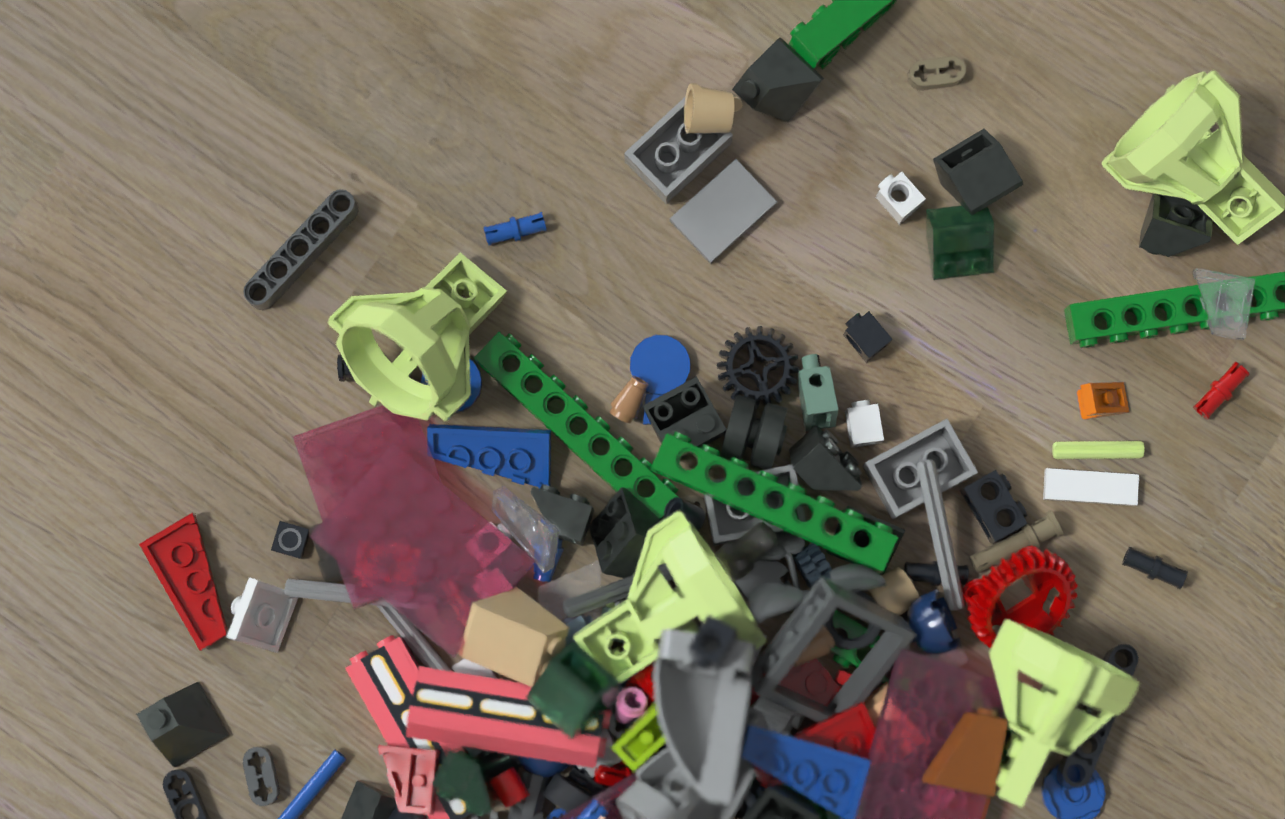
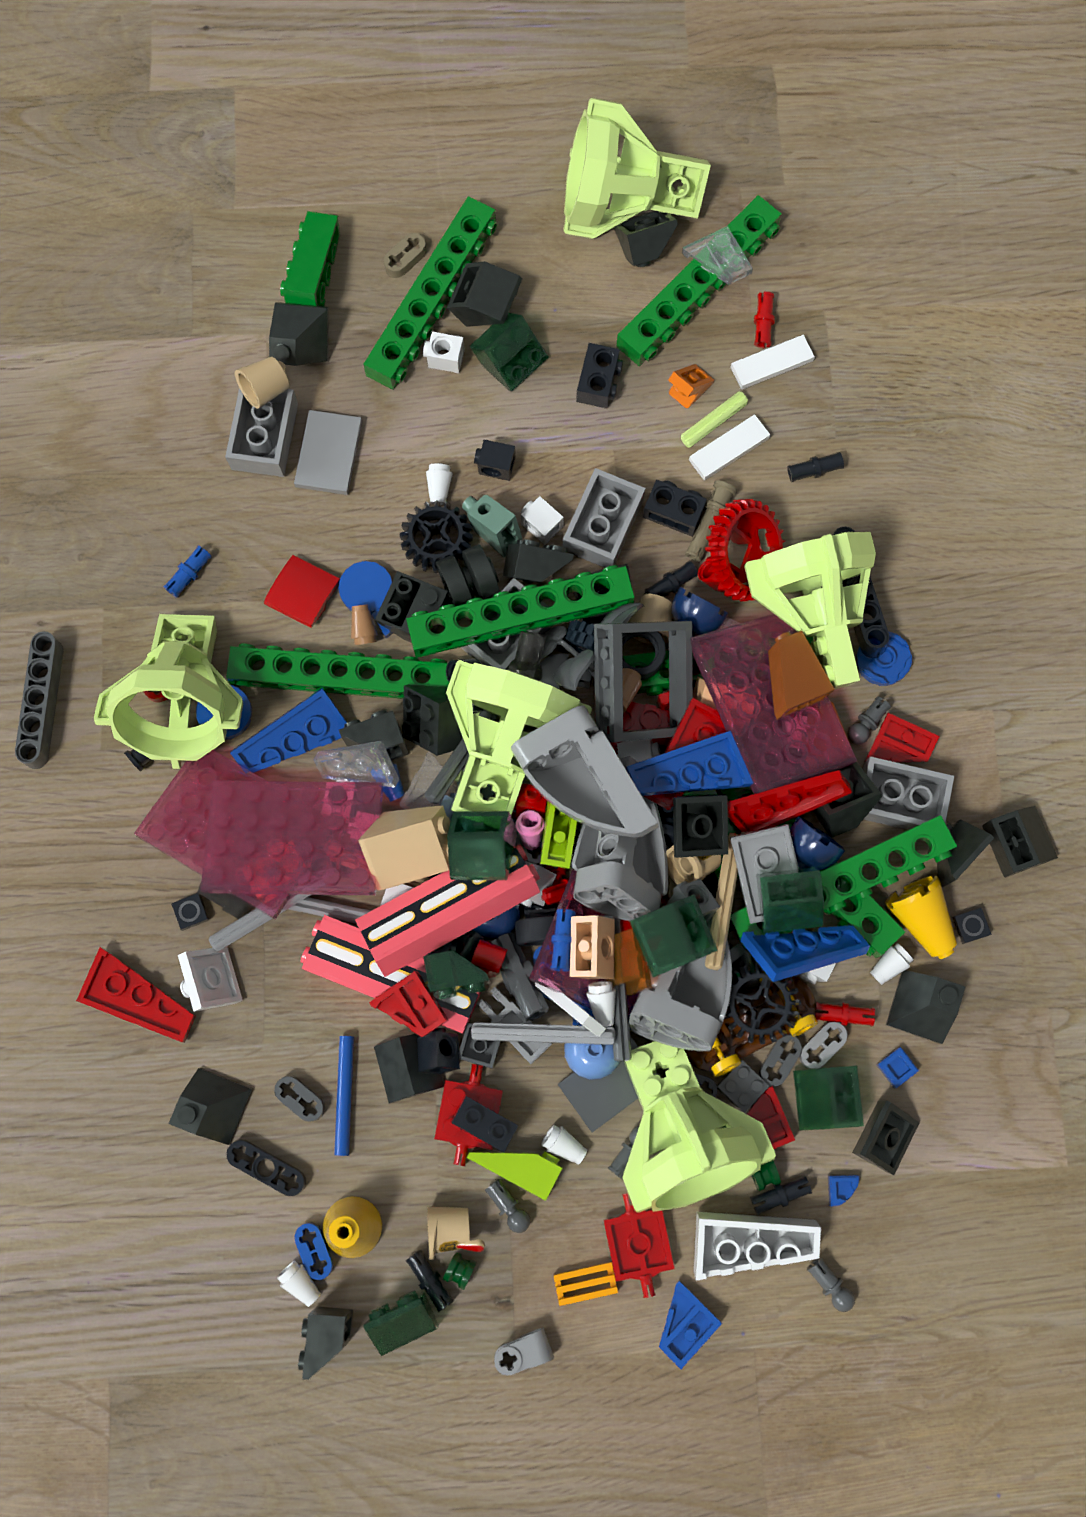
camera: 40 degrees left, 5 degrees down
(601, 325) = (301, 591): none -> red slope
(712, 629) = (549, 712): black brick -> none
(798, 318) = (438, 482): none -> white cone
(940, 534) = (653, 548): light grey axle -> none
(1019, 323) = (595, 375): none -> black brick
(1026, 82) = (471, 216): none -> green brick
(1196, 436) = (772, 362): none -> white tile

